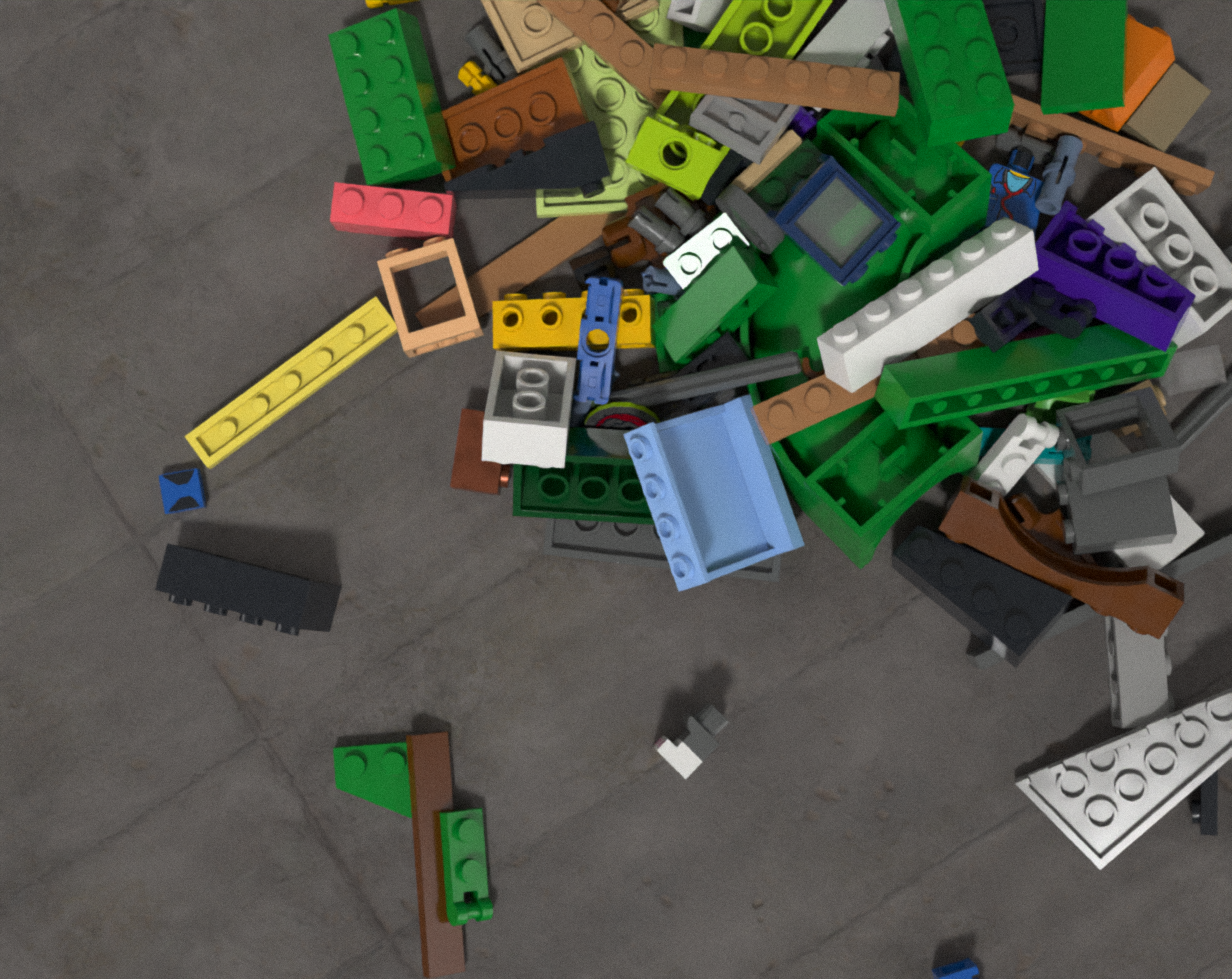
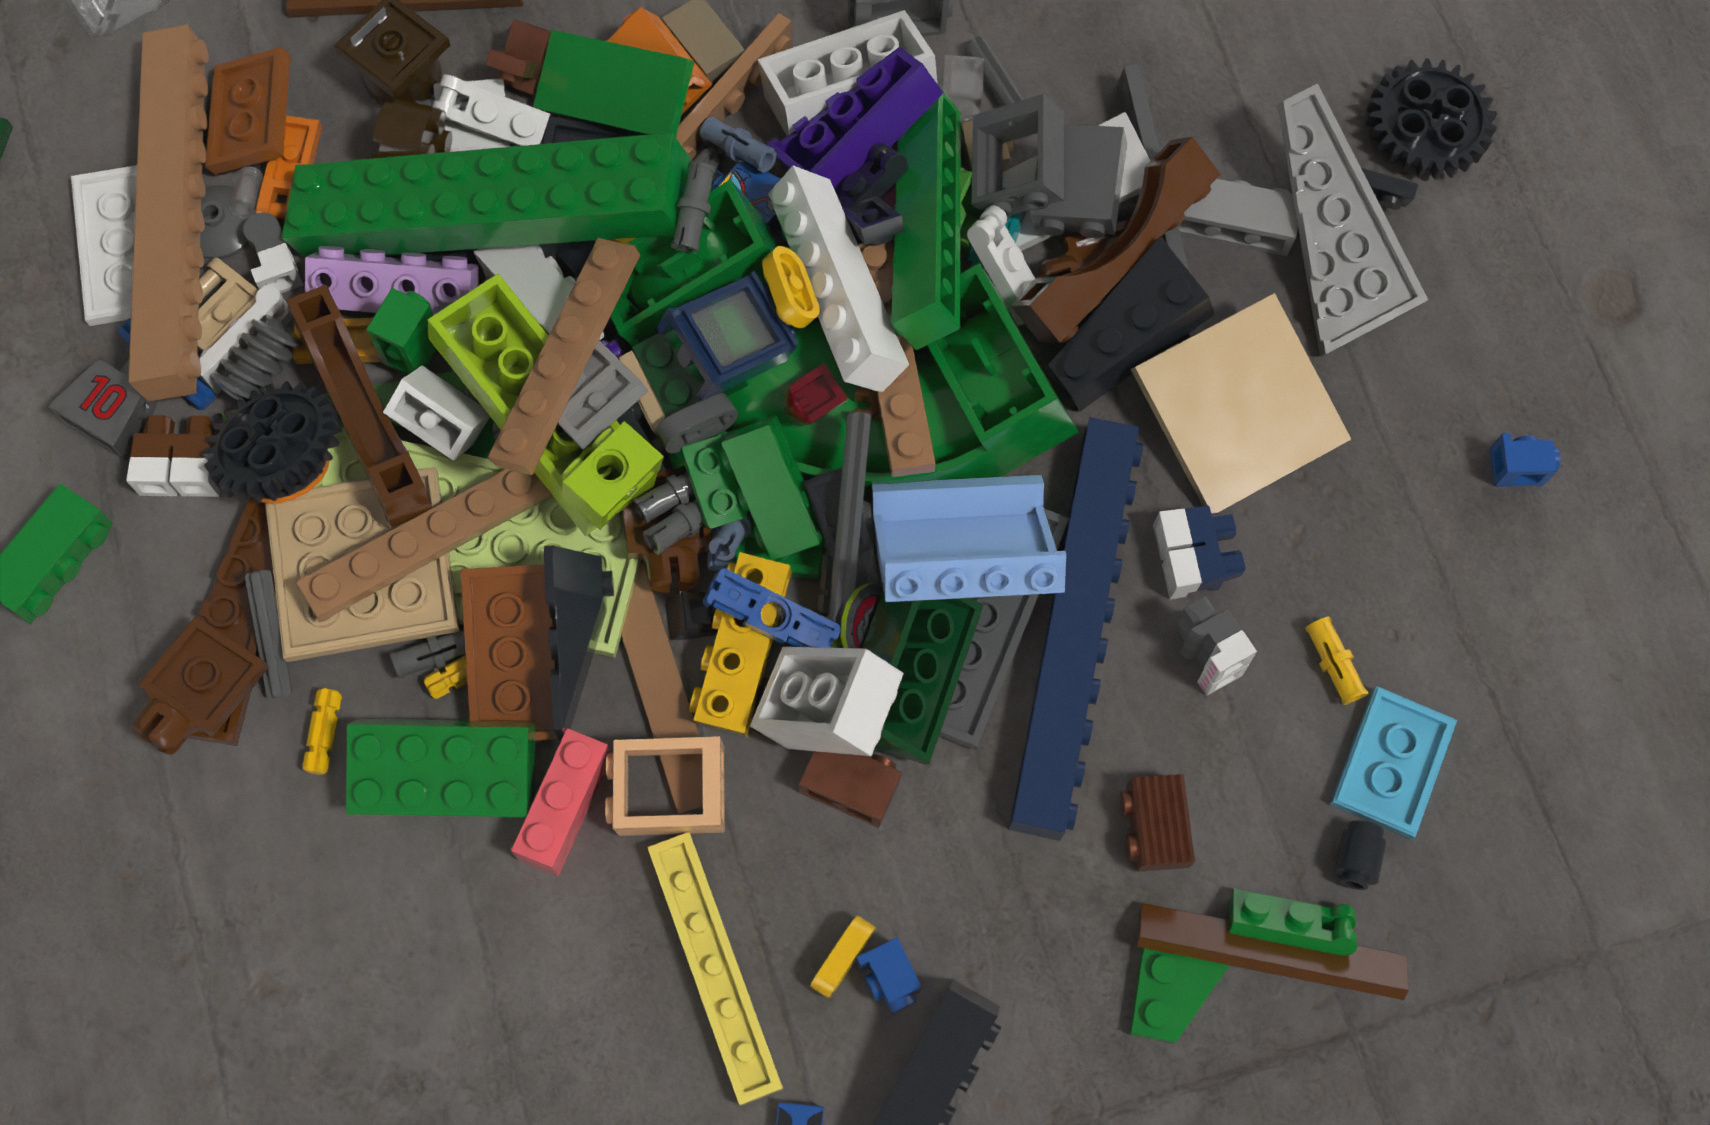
camera: 75 degrees left, 15 degrees down
(324, 532) = (890, 975): none -> blue brick
(330, 488) = (843, 956): none -> yellow beam
(519, 729) = (1158, 823): none -> copper brick
(541, 913) = (1360, 855): none -> black brick
(637, 926) = (1393, 762): none -> medium azure tile
(671, 614) = (1074, 632): none -> dark blue brick
(715, 855) = (1336, 660): none -> yellow pin
(798, 697) = (1191, 550): none -> hips
(807, 315) = (813, 396): none -> dark red plate
(897, 262) = (790, 287): none -> yellow plate
(937, 714) = (1241, 404): none -> tan tile
(951, 149) = (693, 207): none -> dark grey pin

